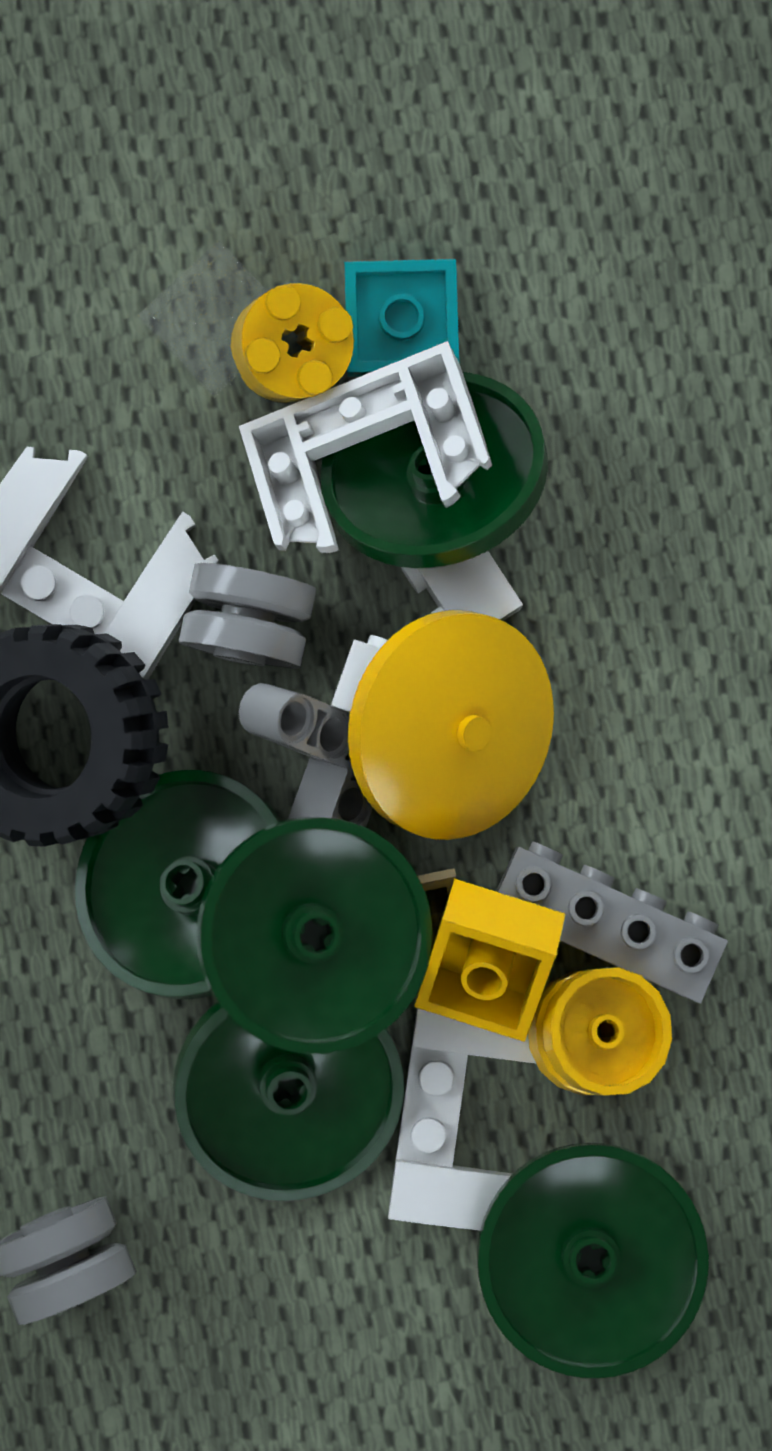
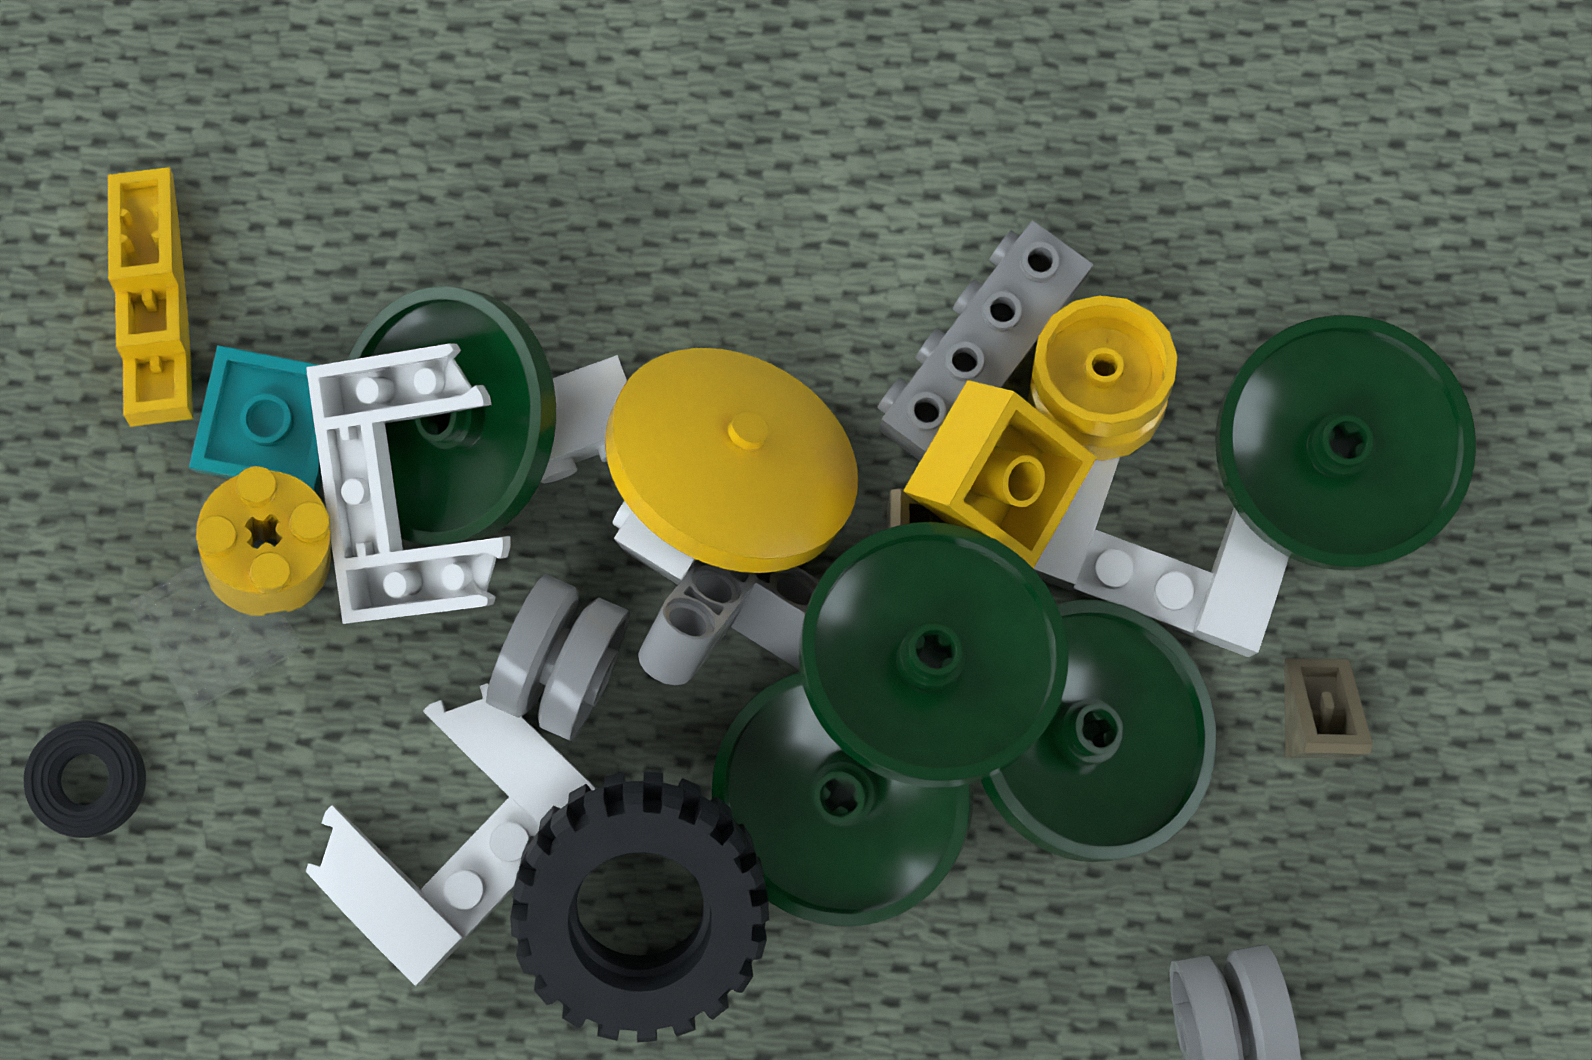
camera: 75 degrees left, 5 degrees down
(54, 210) = (45, 771): none -> black tyre
(353, 1287) = (1323, 710): none -> dark tan slope
(488, 189) = (149, 297): none -> yellow slope

